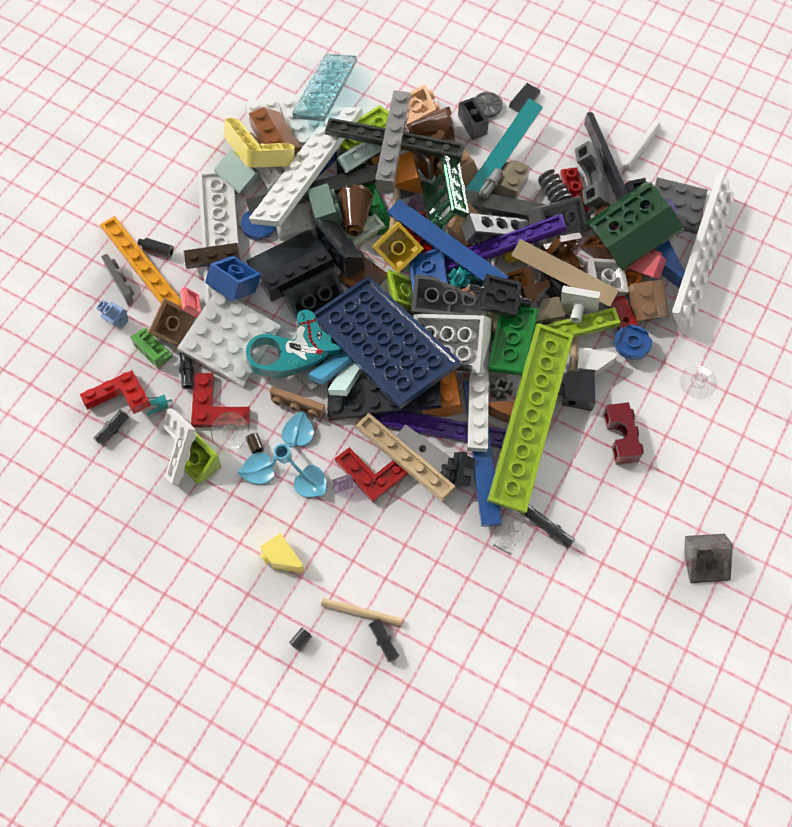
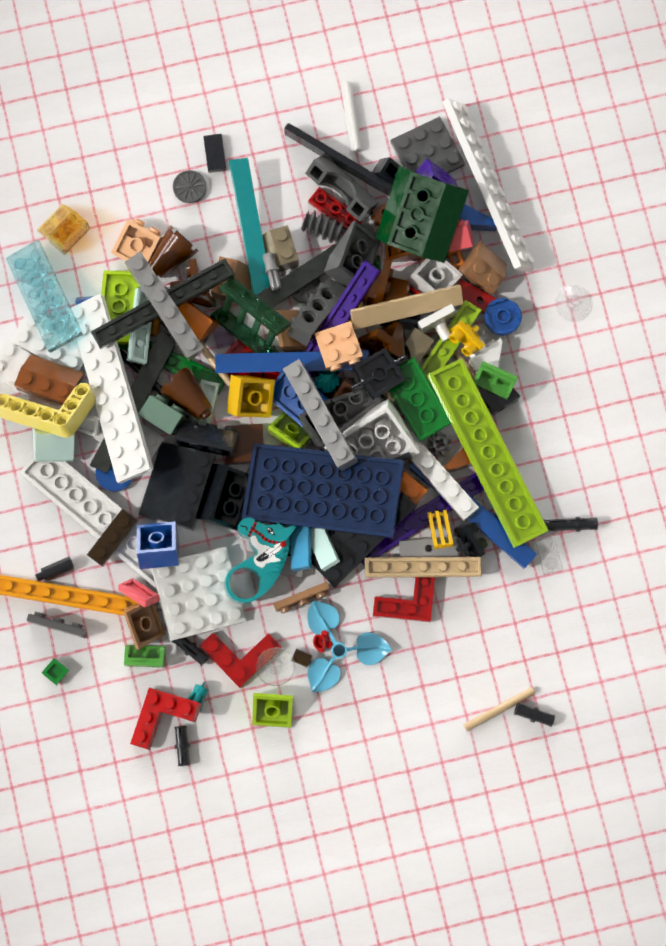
camera: 45 degrees left, 15 degrees up
(85, 306) = (55, 671): none -> green plate
(113, 313) = (86, 658): medium blue hips -> none
(184, 436) = (256, 706): white plate -> none
(279, 440) = (319, 639): none -> red plate
(280, 555) = (405, 723): light yellow slope -> none
(300, 639) = (477, 768): black hinge -> none
(342, 483) = (396, 629): clear purple tile -> none
(380, 66) = (64, 228): none -> clear yellow slope
(422, 307) = (320, 415): none -> light grey arch
(450, 432) = (437, 515): none -> yellow tile
(473, 118) = (195, 216): black brick -> none
(488, 256) = (339, 346): none -> light nougat plate
(585, 373) = (495, 380): none -> bright green hinge
(592, 328) = (468, 336): none -> yellow hips
(622, 418) = (547, 388): dark red arch -> none

